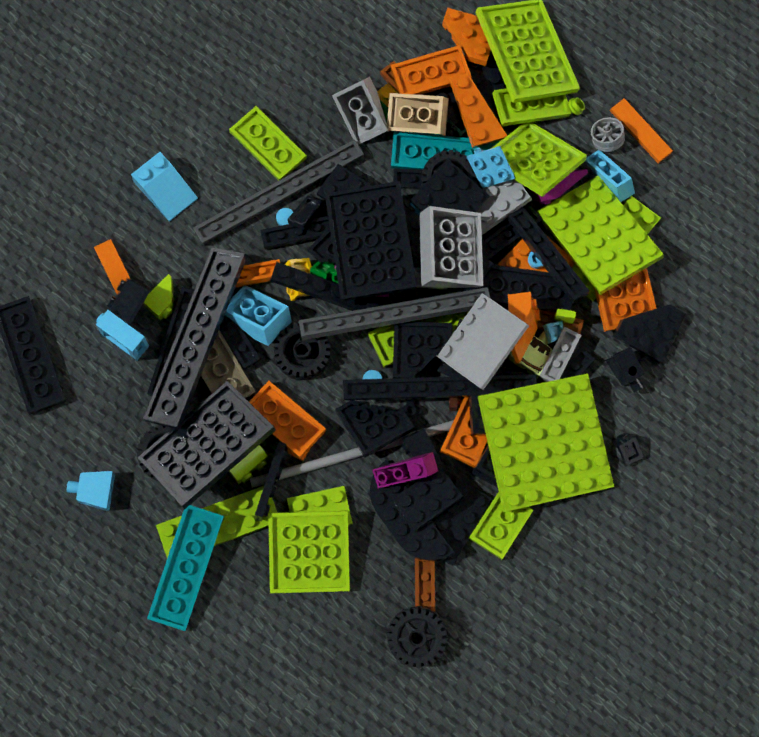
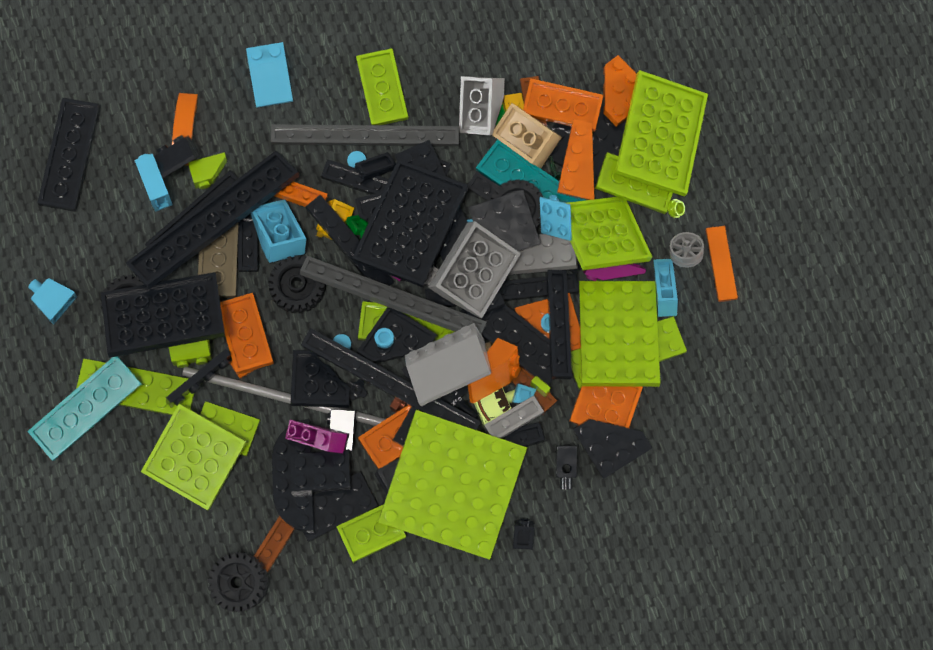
camera: 35 degrees right, 0 degrees up
(409, 352) = (384, 338): none -> medium azure tile

